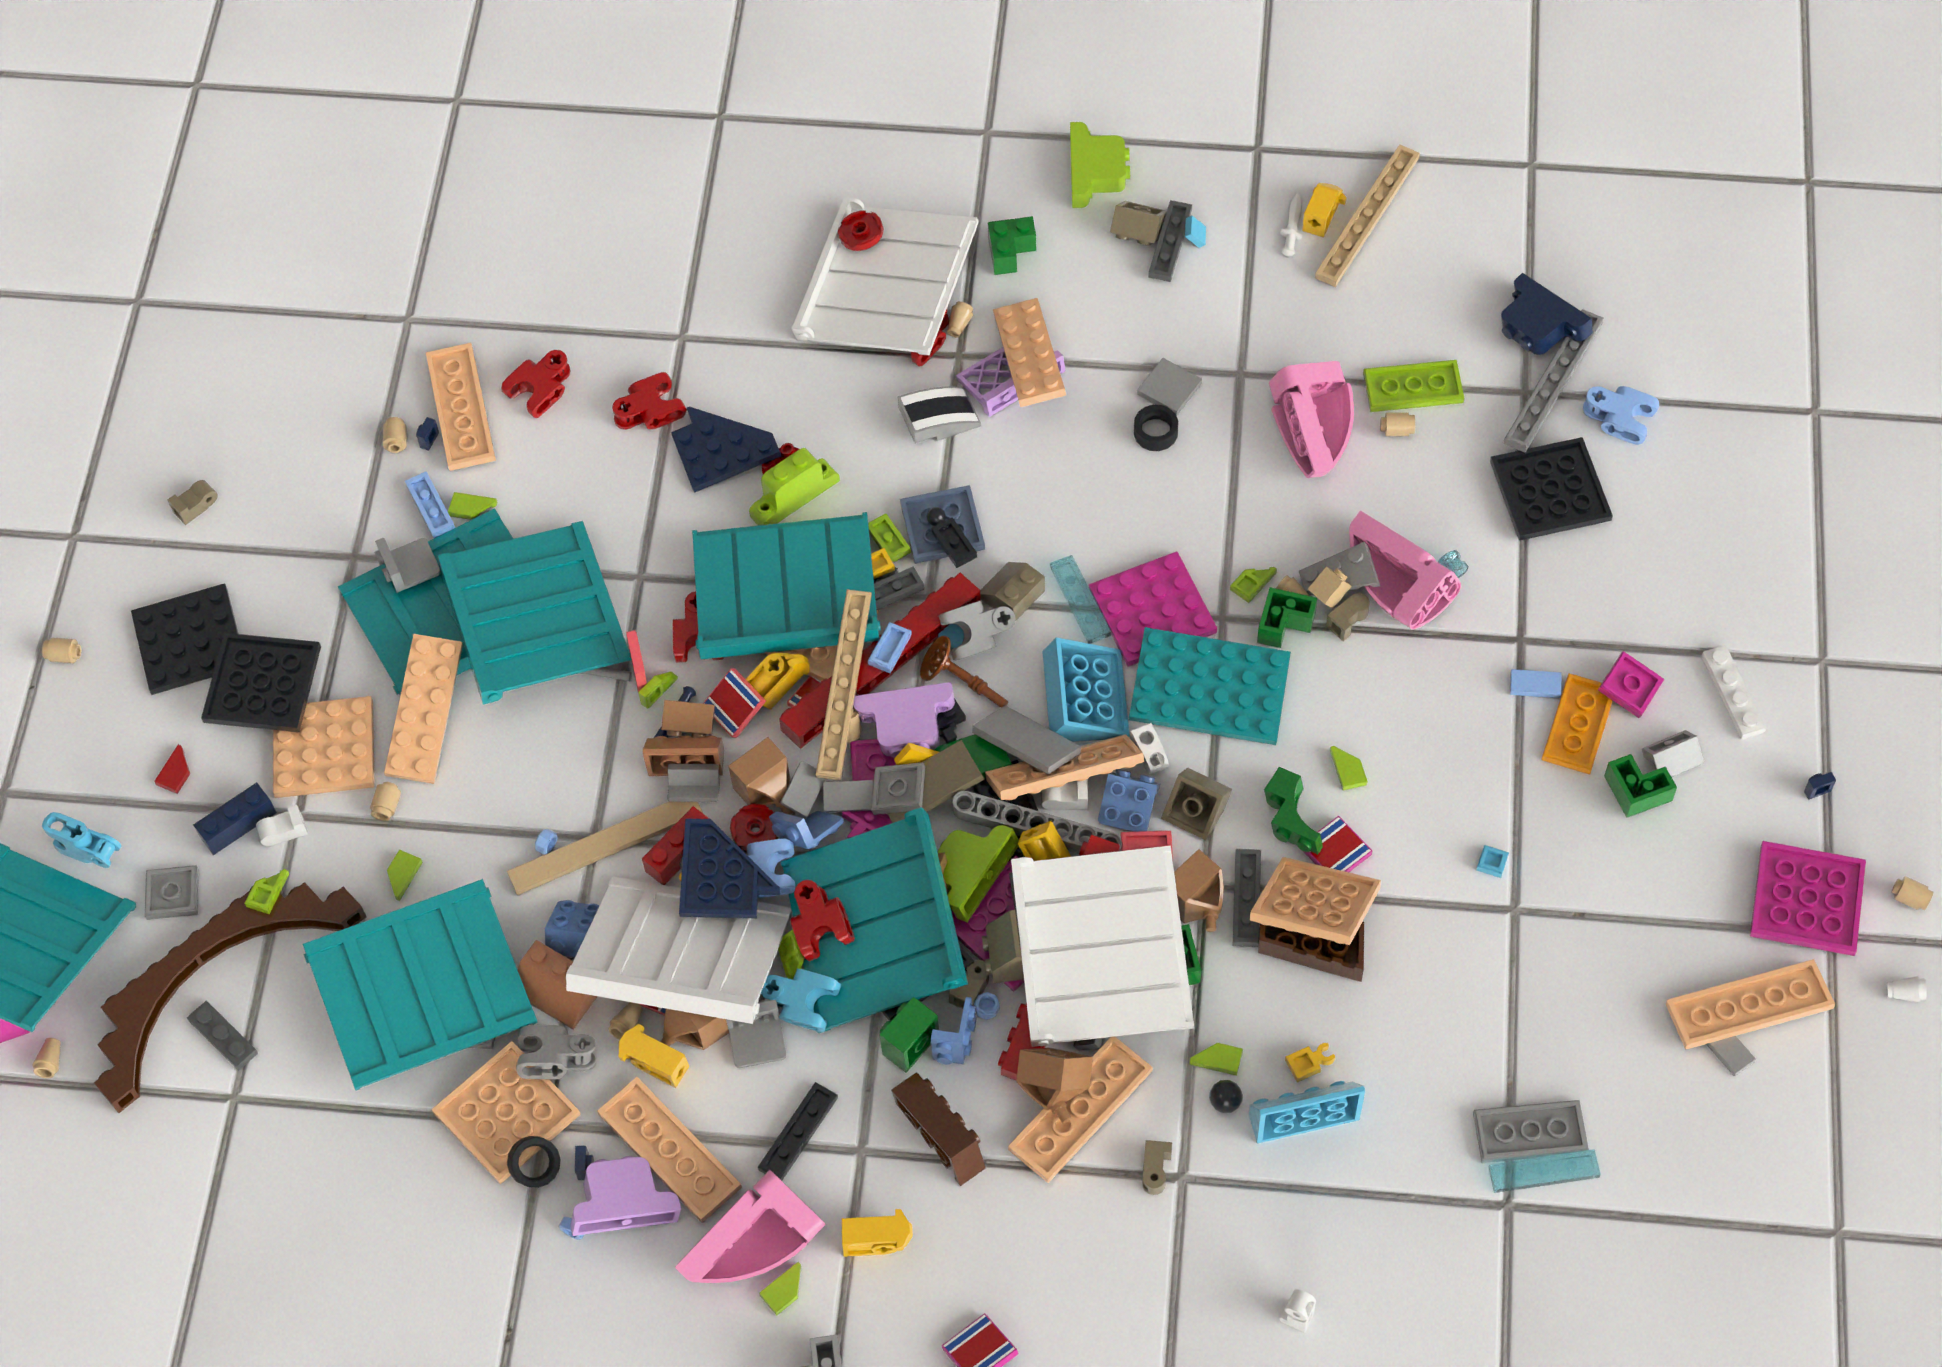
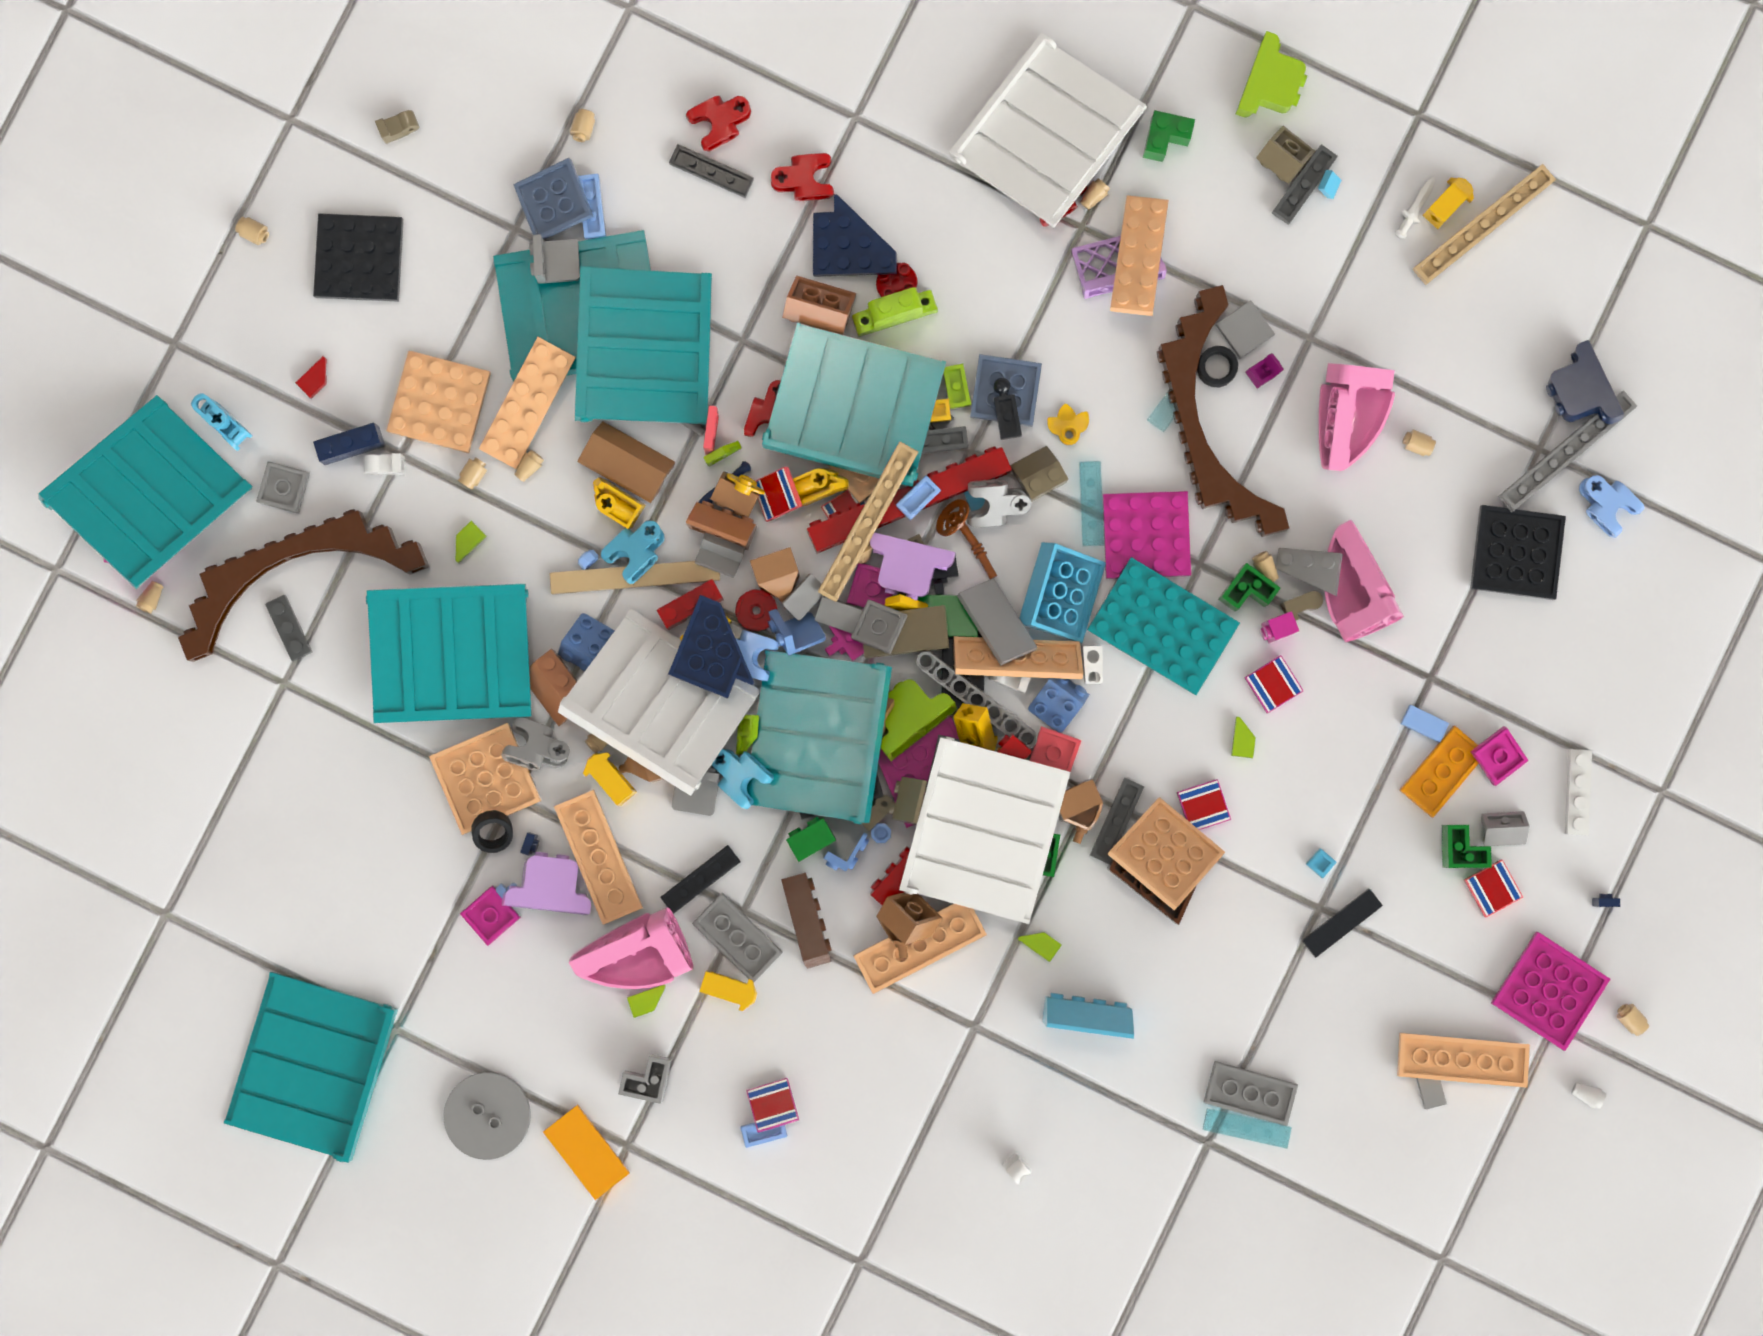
camera: 15 degrees right, 25 degrees up
(261, 682) = (403, 328): black plate -> none
(266, 891) = (354, 524): lime tile -> none
(386, 508) = (553, 199): none -> sand blue plate
(427, 433) = (610, 135): dark blue plate -> none
(446, 772) = (530, 464): none -> tan cone
(460, 406) = (646, 117): light nougat plate -> none
(469, 506) = (624, 218): lime tile -> none
(547, 432) = (711, 170): none -> tile
(554, 731) = (626, 461): none -> medium nougat slope
(563, 1262) = (489, 916): none -> dark pink tile
(569, 777) = (624, 507): none -> yellow piece
(597, 810) = (637, 547): none -> medium azure piece
(694, 696) = (745, 484): none -> yellow plate
(709, 512) = (819, 305): none -> nougat slope
(817, 918) = (775, 715): red piece -> none
(860, 230) = (1040, 65): red plate -> none
(864, 1179) = (737, 937): none -> light grey tile
(937, 412) = (1042, 281): slope -> none
(1021, 532) = (1068, 422): none -> yellow plate
(1121, 485) = (1162, 414): none -> clear light blue tile
(1153, 1174) = (956, 1012): dark tan leg -> none
(1196, 803) = (1110, 725): dark tan slope -> none
(1198, 531) = (1211, 479): none -> reddish brown arch
(1207, 414) = (1264, 370): none -> magenta bracket
(1225, 1096) = (1033, 978): black piece -> none
(1251, 582) = (1236, 542): lime tile -> none
(1287, 826) = (1173, 775): green arch -> none
(1307, 1063) = (1104, 975): yellow plate -> none
(1330, 586) = (1295, 581): tan brick -> none
(1334, 639) = (1279, 627): none -> dark pink brick
(1355, 702) = (1273, 684): none -> tile
(1413, 385) = (1449, 408): lime tile -> none
(1453, 562) = (1405, 593): clear light blue wheel -> none
(1545, 913) = (1342, 923): none -> black tile
(1692, 818) = (1493, 888): none -> tile

